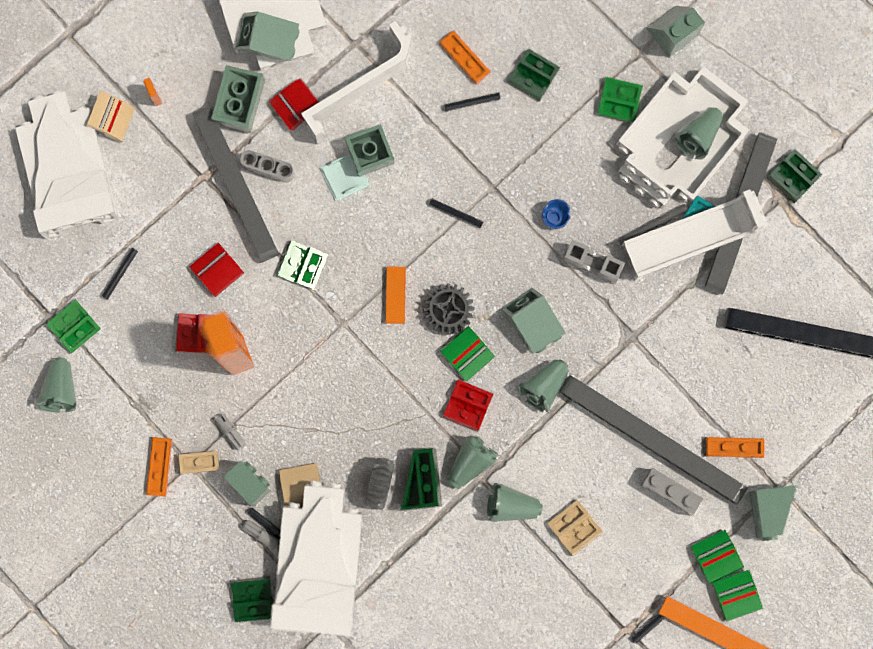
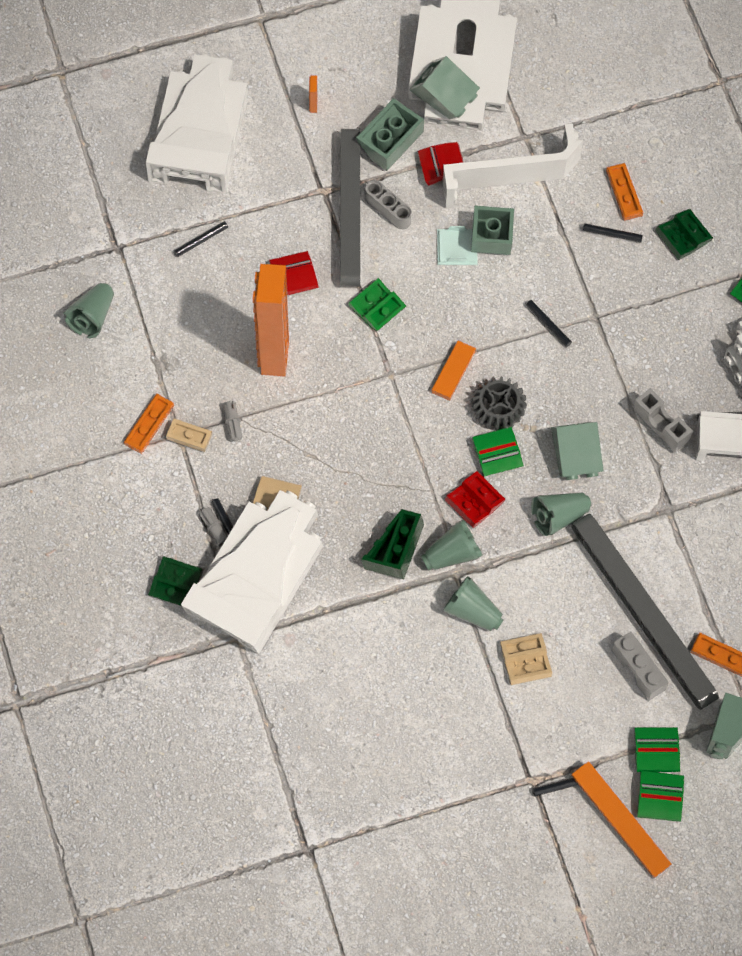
camera: 25 degrees right, 15 degrees down
(73, 326) = (133, 265): green slope -> none
(111, 116) = (263, 99): tan slope -> none
(189, 334) = (240, 322): red slope -> none
(247, 483) = (226, 470): sand green brick -> none
(379, 483) = (353, 527): dark grey gear -> none
(556, 214) = (646, 362): blue hair -> none

